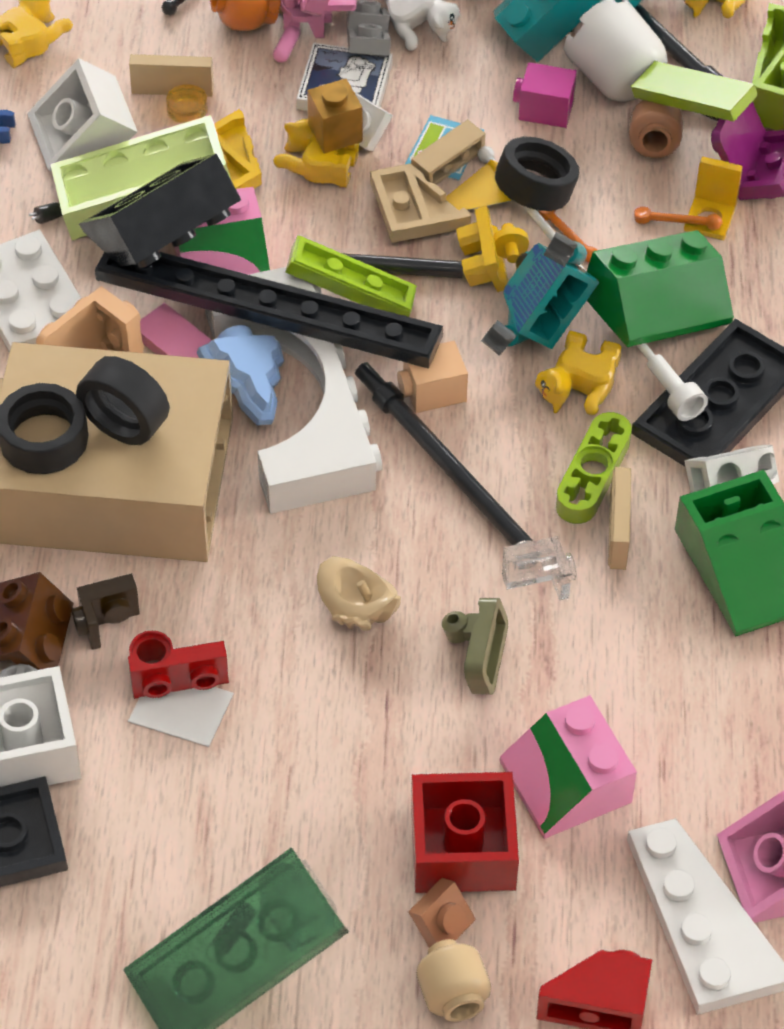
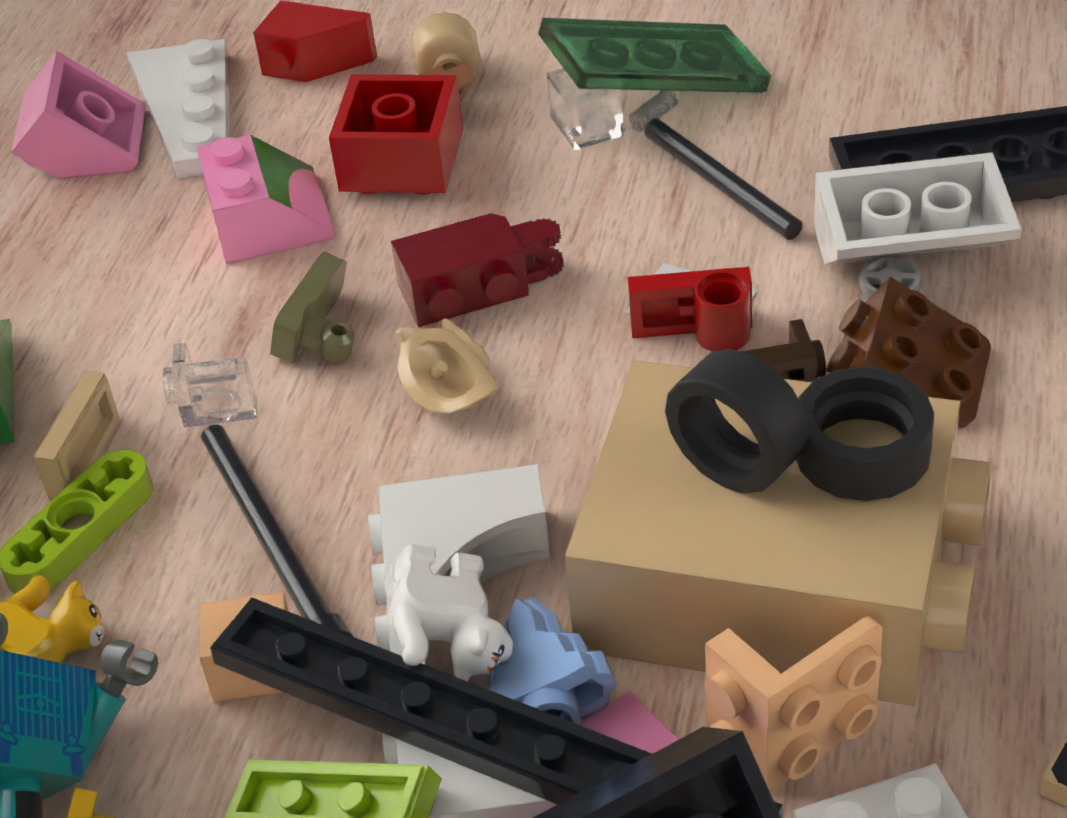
camera: 165 degrees left, 10 degrees down
(161, 834) = (724, 179): none -> black bar
(305, 361) = (444, 609): none -> white animal
(362, 698) = (473, 265): none -> dark red hinge

